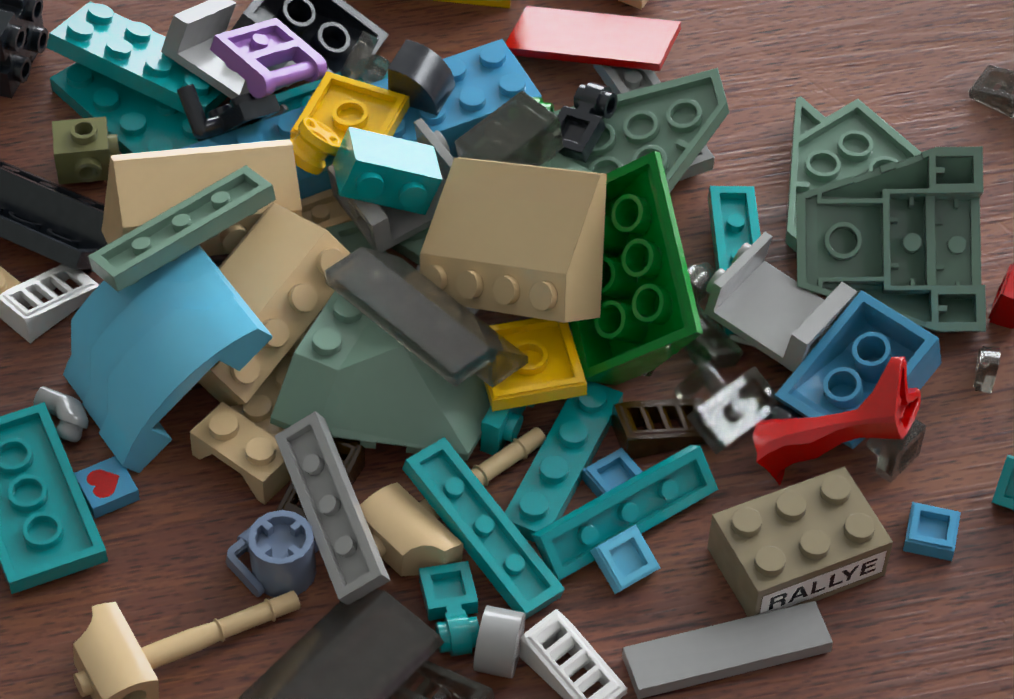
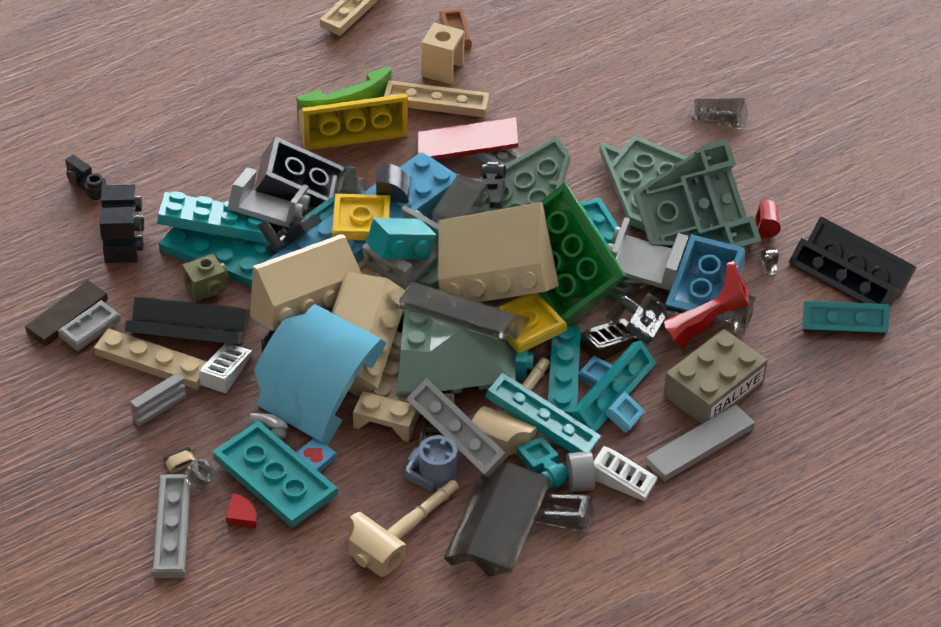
camera: 20 degrees left, 5 degrees down
(181, 228) = (308, 297): sand green plate -> none
(263, 45) = (293, 189): medium lavender plate -> none
(313, 145) = (354, 234): yellow wheel -> none
(931, 531) = (779, 352): dark azure tile -> none

